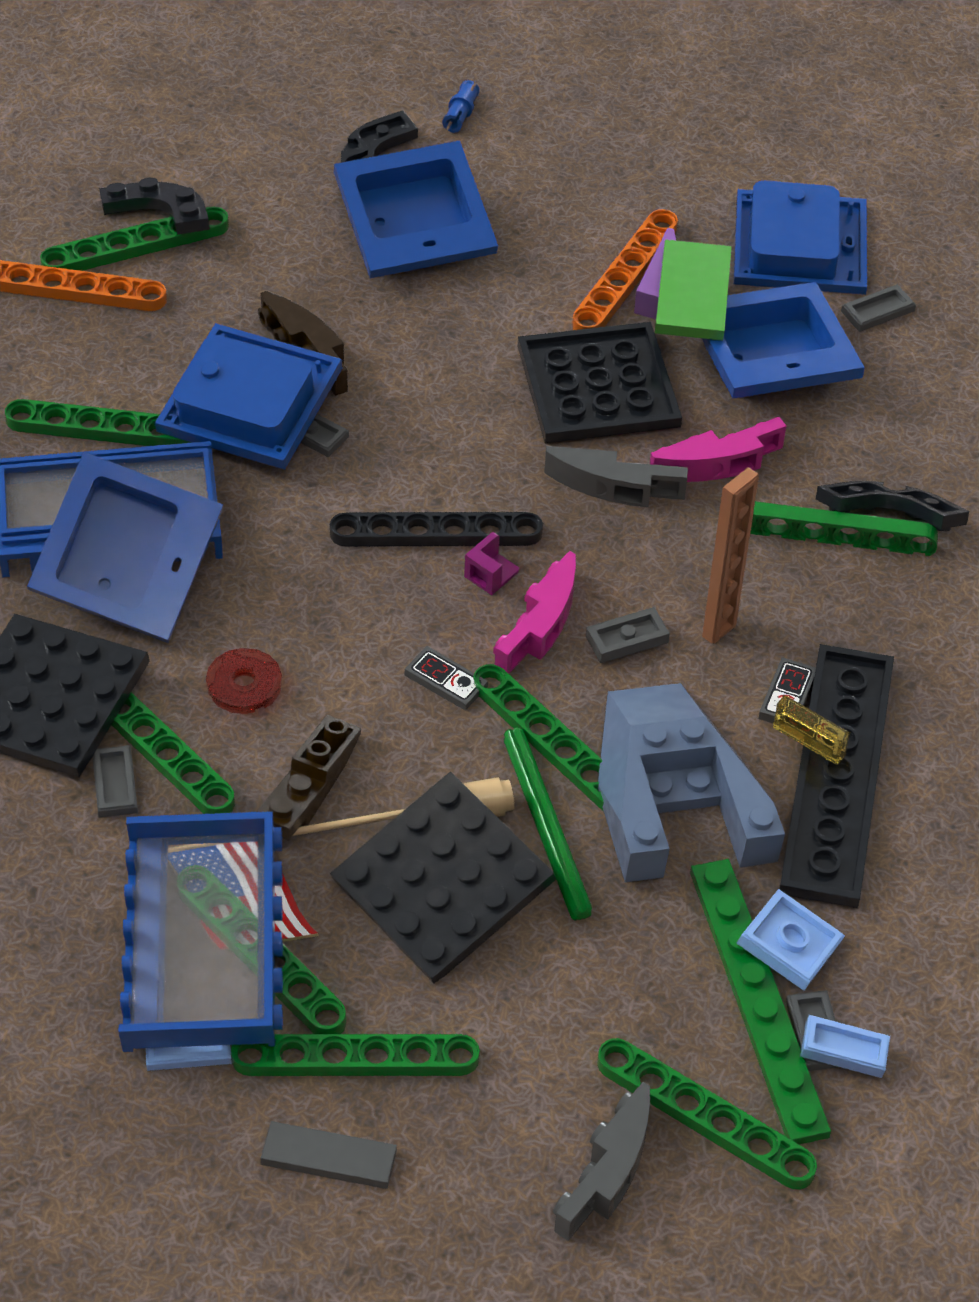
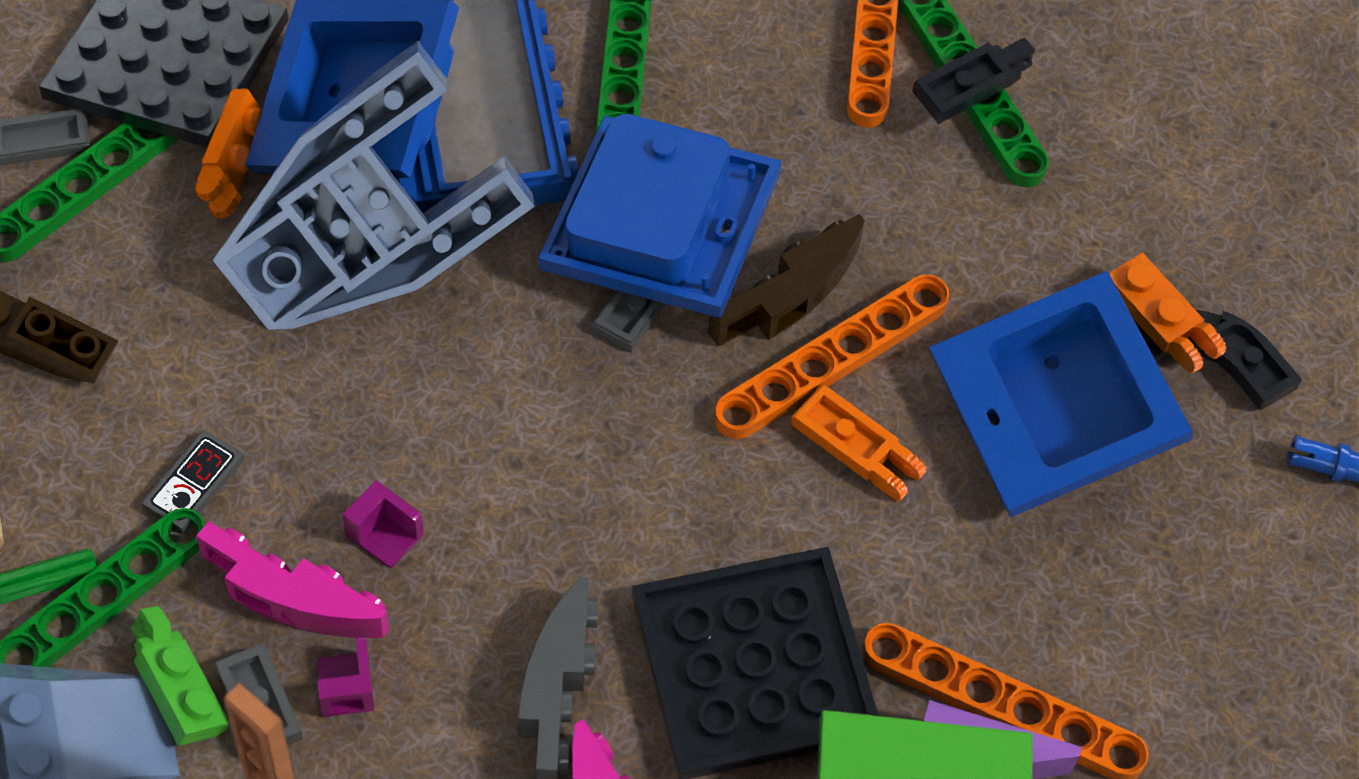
camera: 85 degrees right, 10 degrees up
(148, 229) = (972, 78): none -> black hinge
(161, 648) = (227, 154): none -> orange hinge
(178, 201) = (1050, 111): black plate -> none
(237, 548) = (340, 226): none -> sand blue wedge
(239, 663) = (171, 240): clear red tile -> none
(368, 328) = (828, 351): none -> orange beam
(373, 145) = (1166, 313): none -> orange hinge
(433, 322) = (856, 441): none -> orange hinge
(435, 524) = (455, 460): black beam -> none
(610, 680) = (176, 680): none -> bright green hinge
(611, 585) = (346, 682): none -> magenta panel

